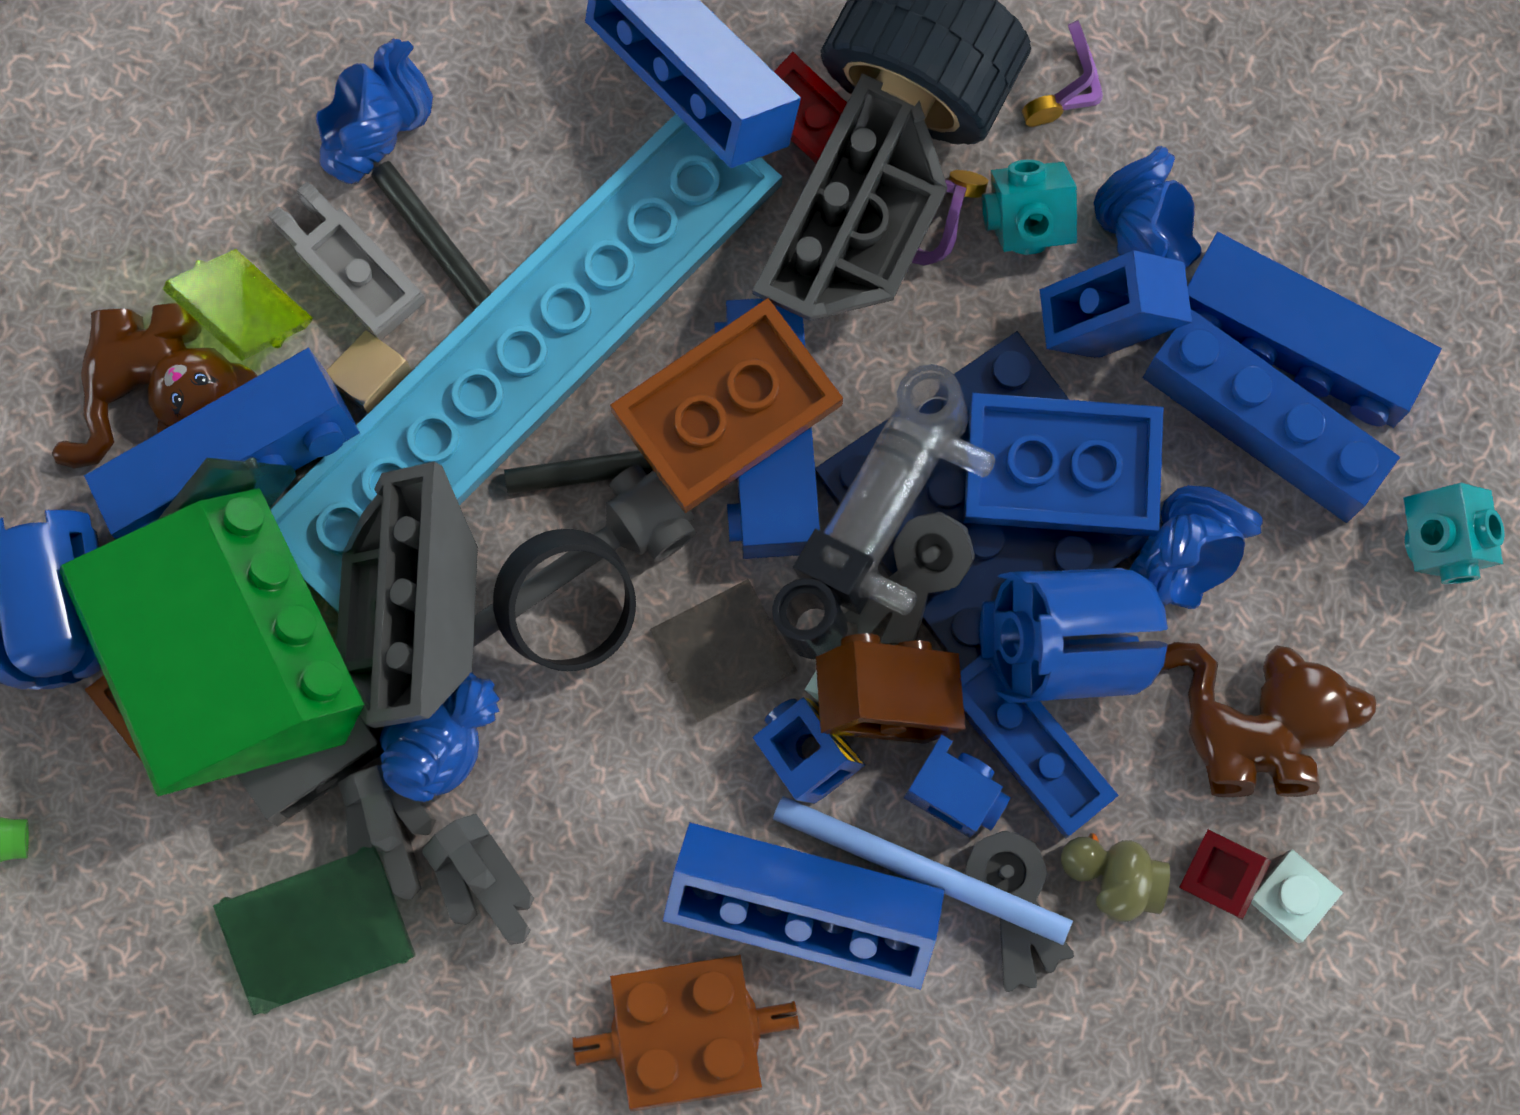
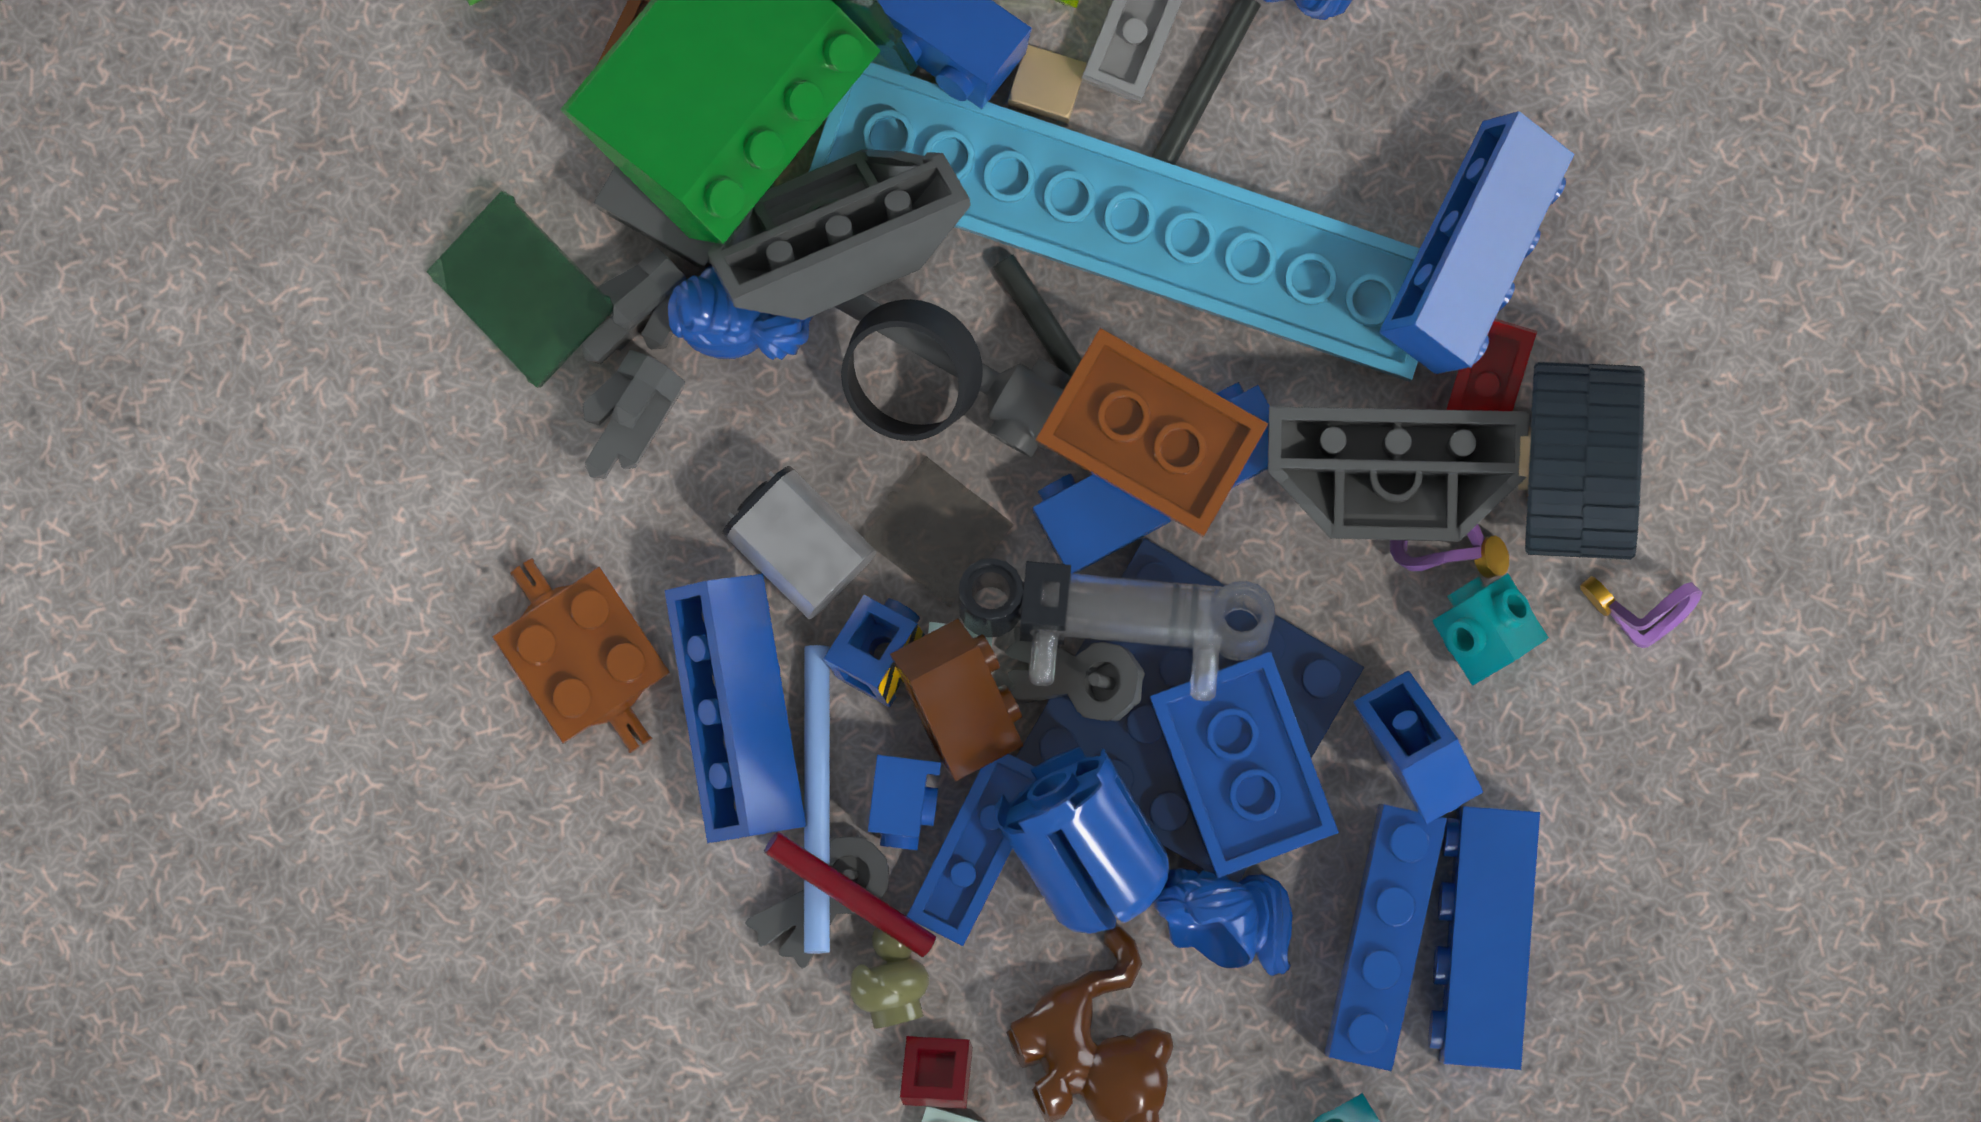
camera: 70 degrees right, 10 degrees up
(674, 776) = (798, 541): none -> flat silver piece
(1026, 876) = (850, 894): none -> dark red bar
(1148, 210) = (1531, 745): blue hair -> none

